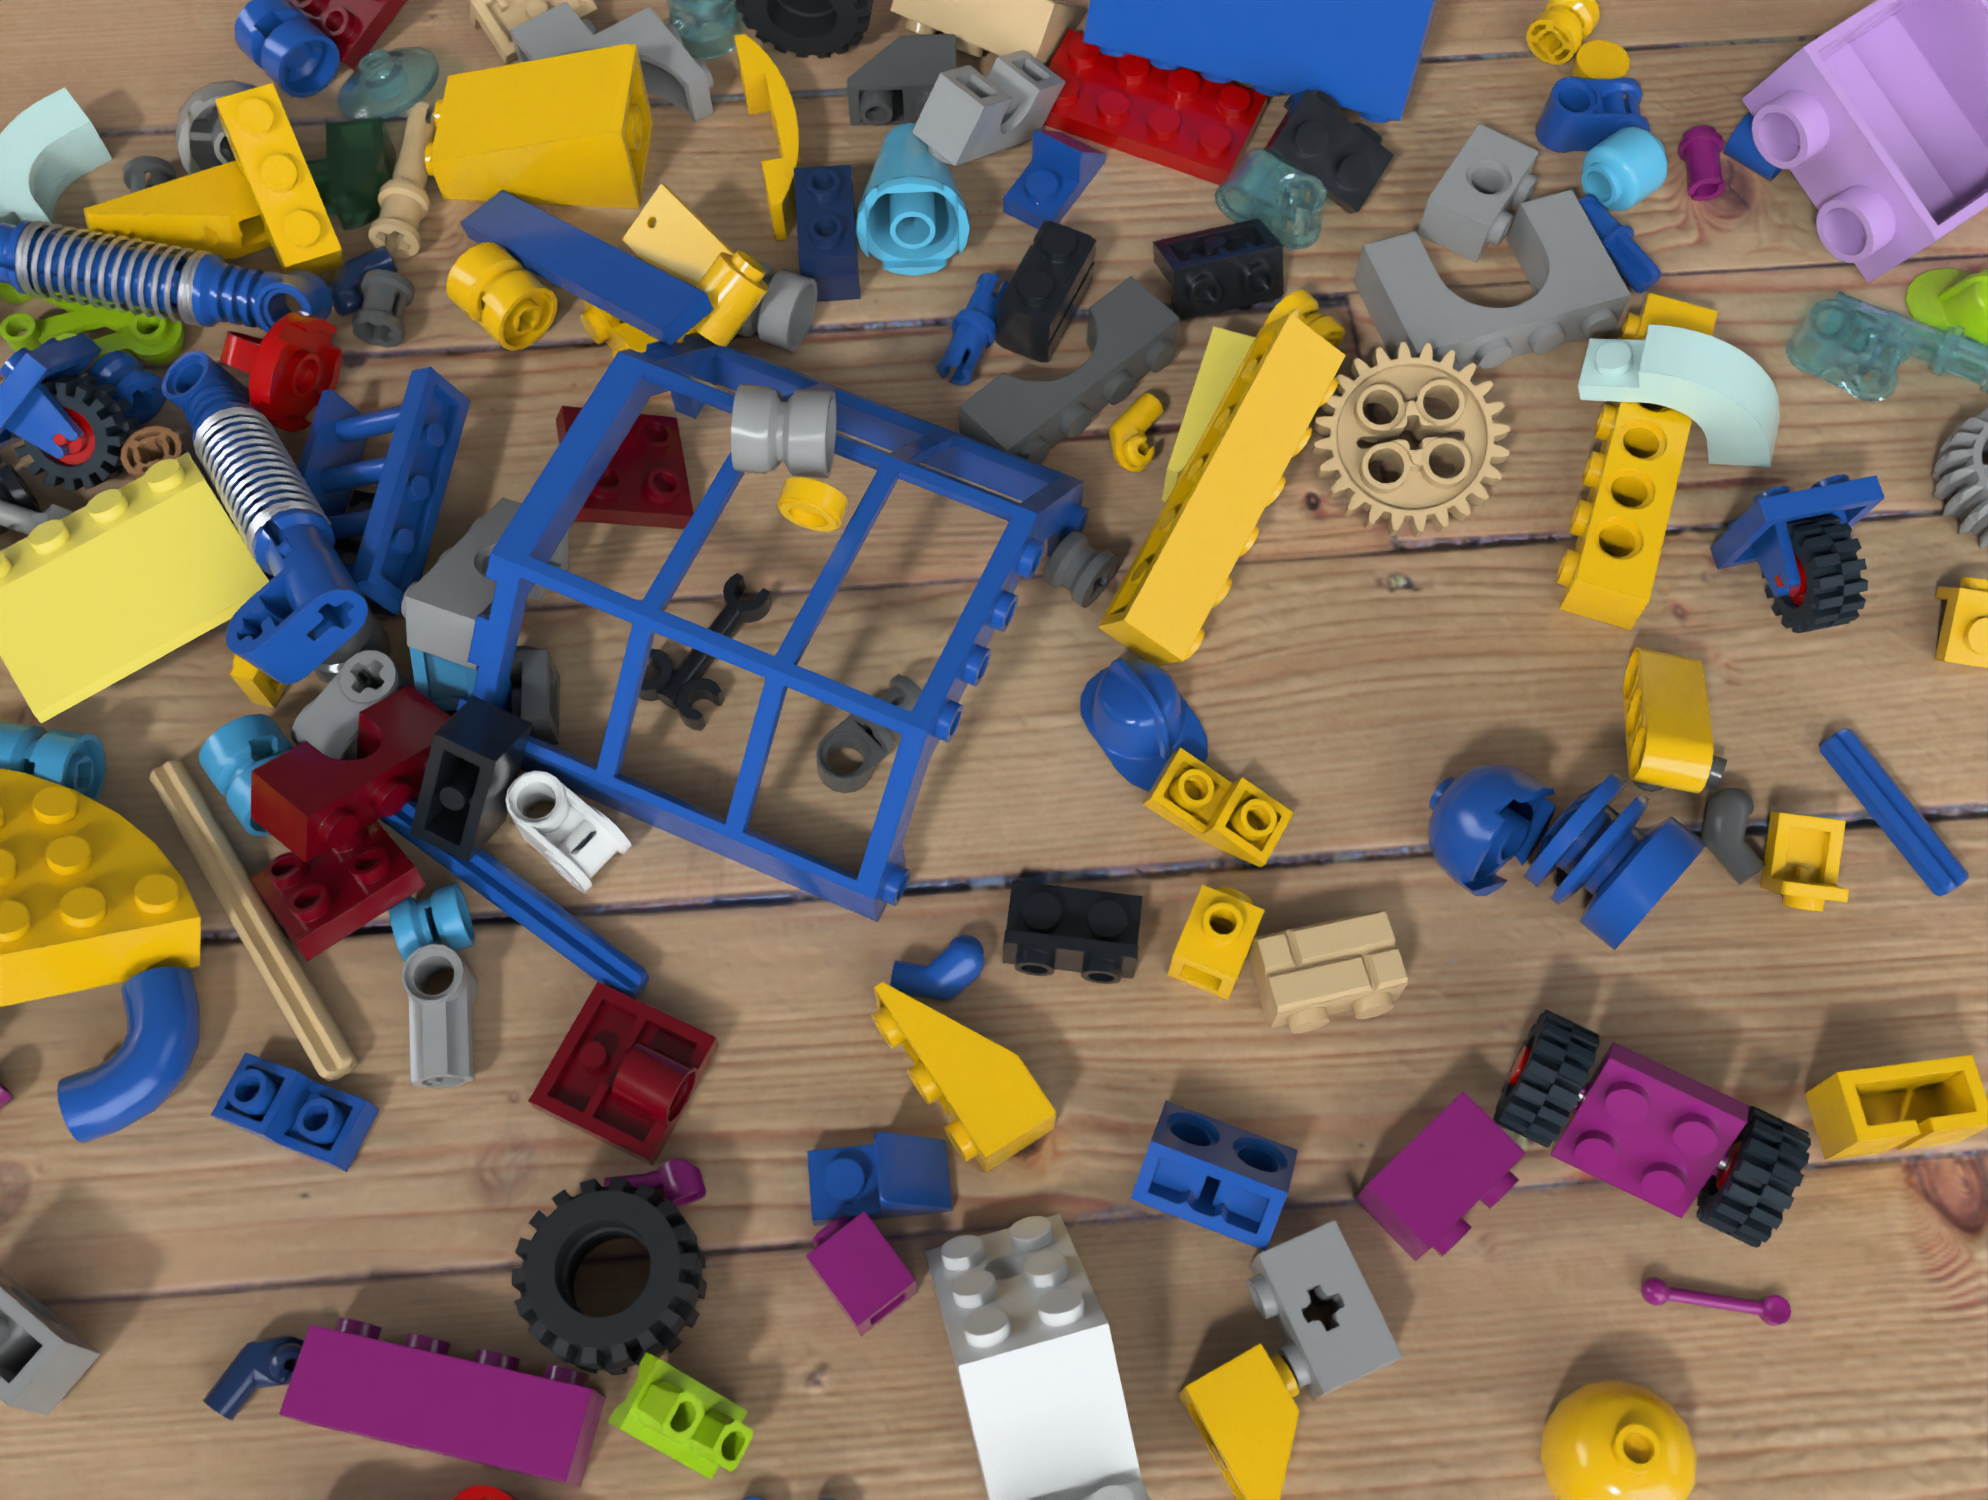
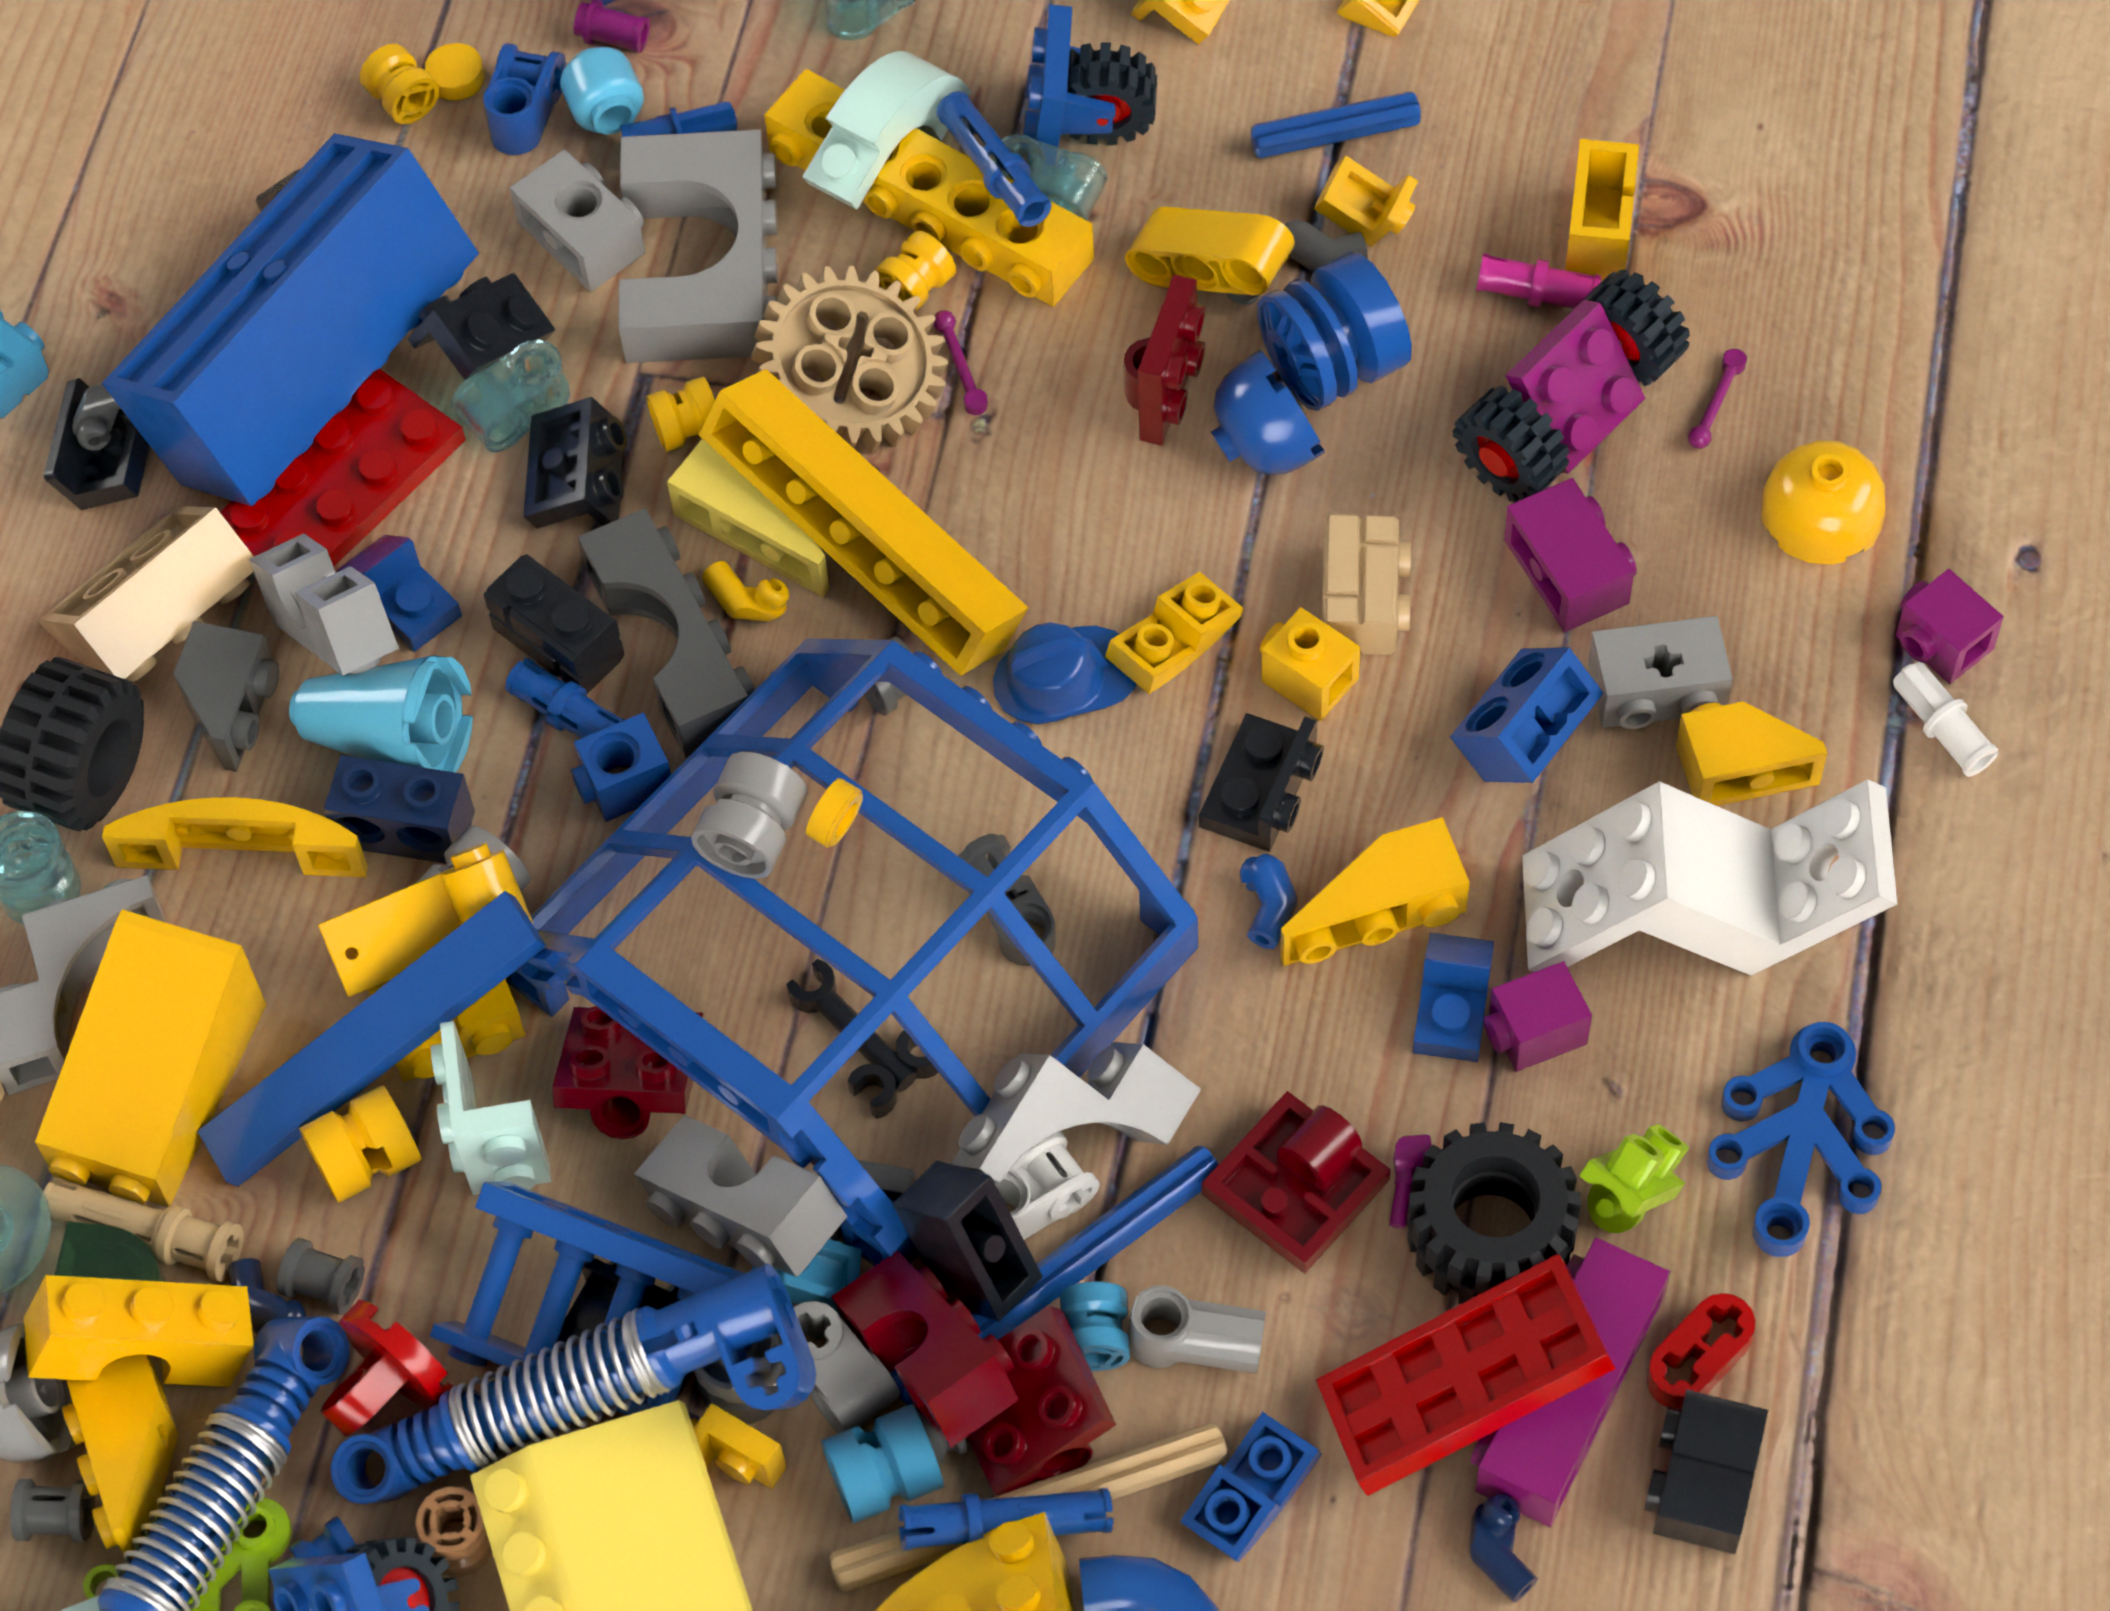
camera: 70 degrees left, 5 degrees down
(202, 869) = (971, 1517): none -> blue pin
(409, 1290) = (1464, 1374): none -> red plate
(533, 356) = (486, 1141): none -> light aqua bracket
(665, 884) = (1040, 1096): none -> arch
(919, 360) = (622, 744): none -> blue brick
(1422, 566) = (974, 399): none -> magenta hinge
(1515, 711) = (1161, 364): none -> dark red plate
(1536, 471) = (919, 267): none -> yellow wheel
(1666, 500) = (1022, 195): none -> blue pin
(1694, 556) = (1063, 176): none -> clear light blue piece
(1779, 1060) = (1534, 281): none -> dark pink pin

